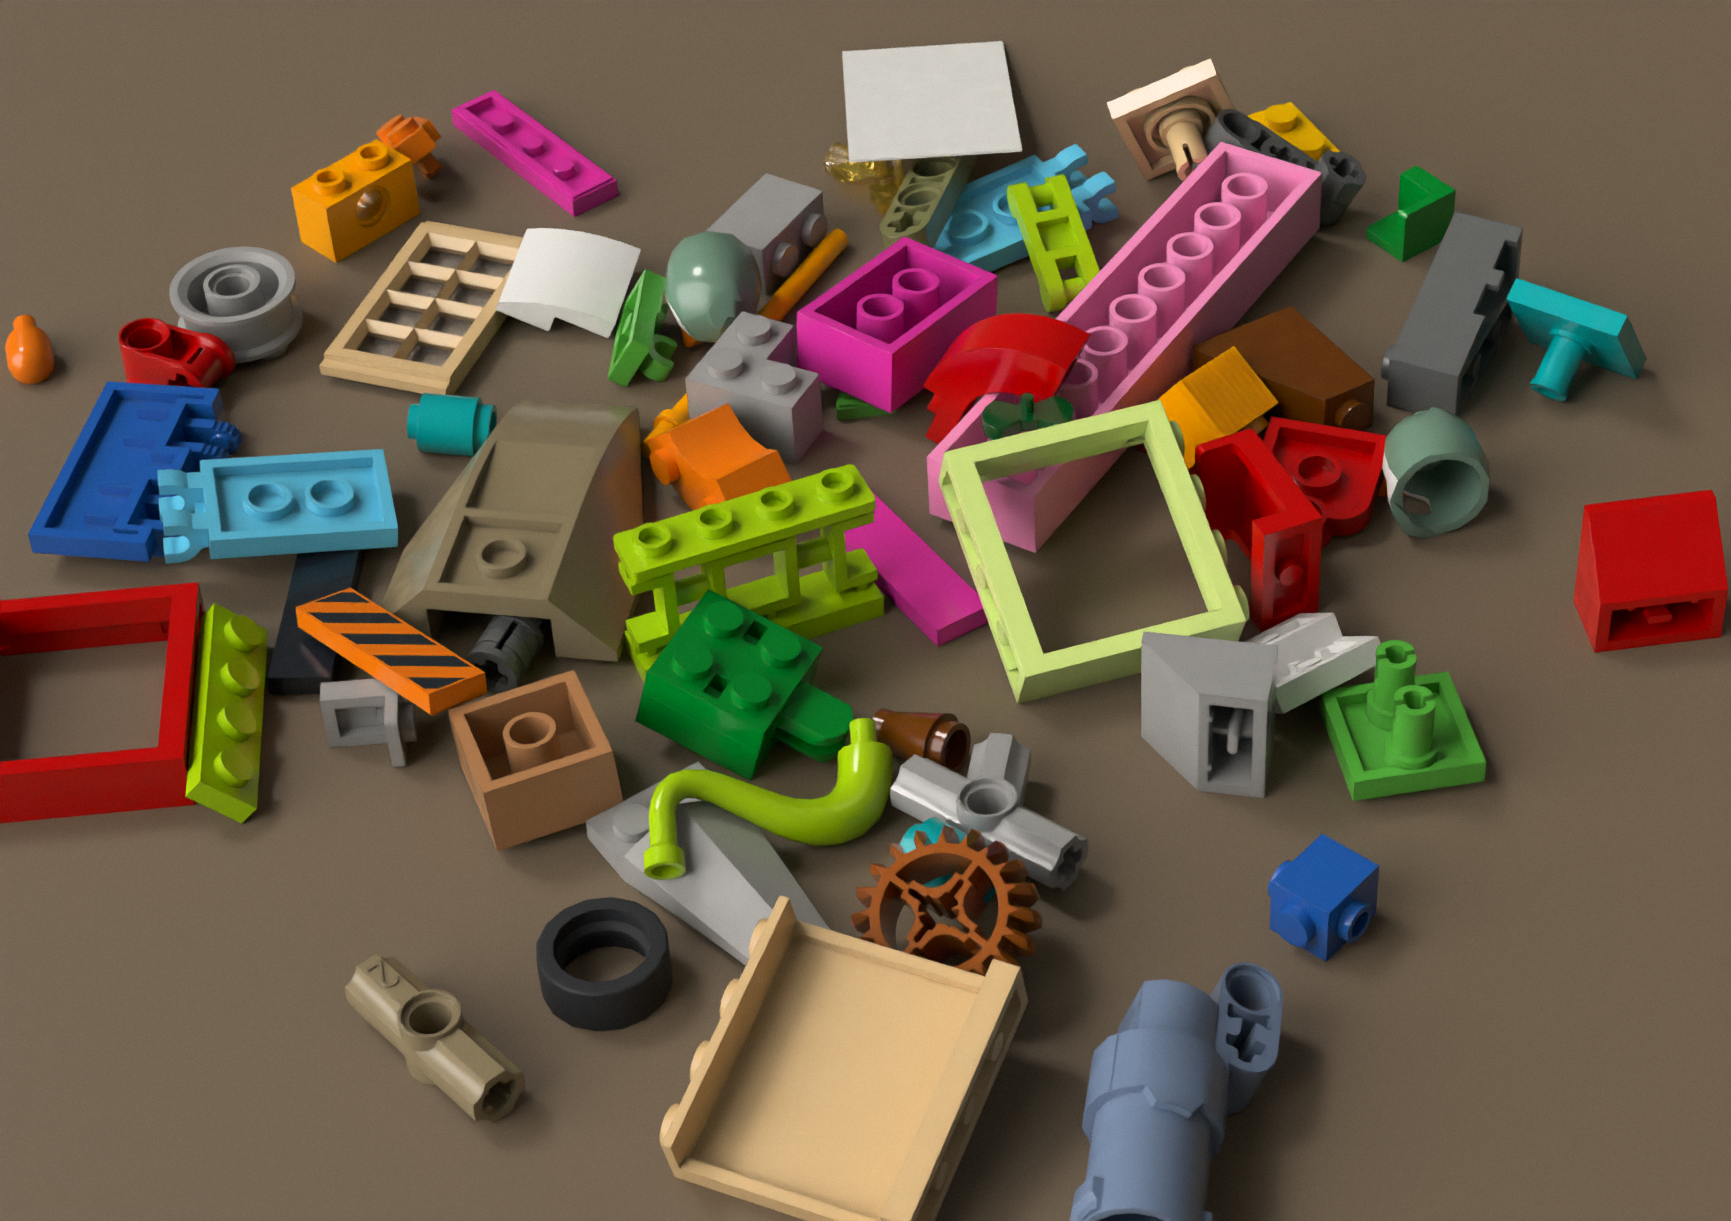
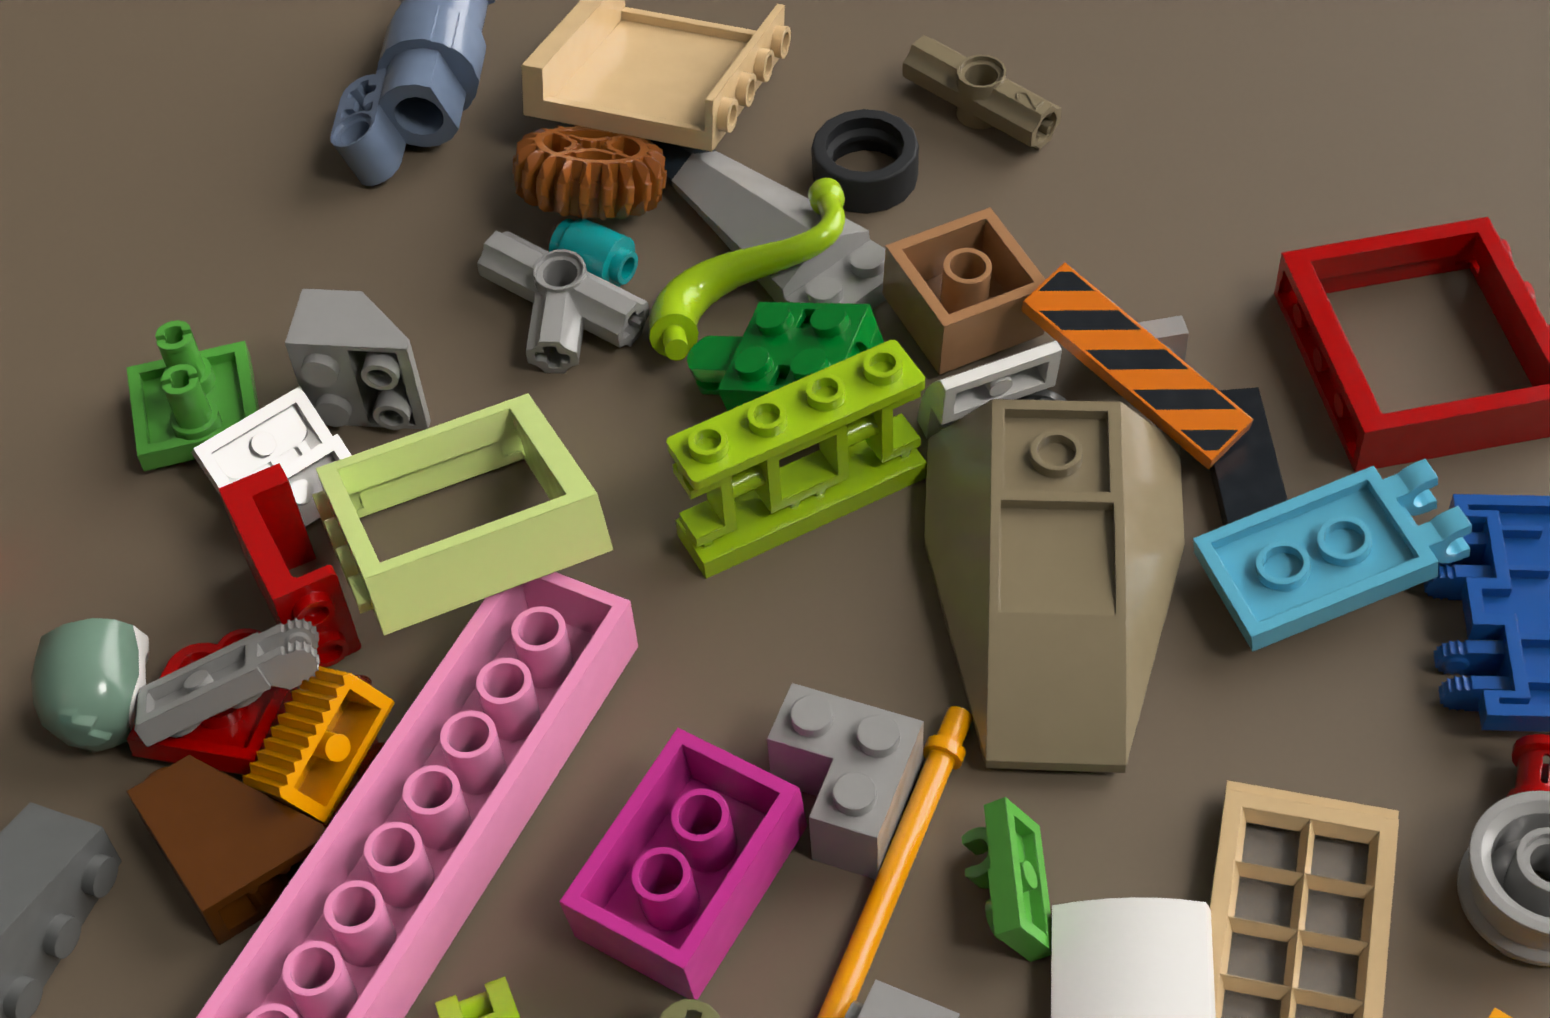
camera: 175 degrees right, 10 degrees up
(227, 714) = (1279, 347): lime plate -> none
(450, 424) = (1195, 714): teal brick -> none
(544, 631) = (1001, 379): none -> white slope
(710, 284) = (926, 893): sand green piece -> none
(714, 459) = (870, 650): orange brick -> none
(917, 578) = (681, 593): dark pink tile -> none
(926, 735) = (625, 368): reddish brown cone -> none
(1005, 356) = (552, 708): red arch -> none
(1008, 419) = (542, 636): dark green piece -> none
(1305, 423) = (227, 680): none -> light grey hinge
(1323, 897) = (288, 247): blue brick -> none

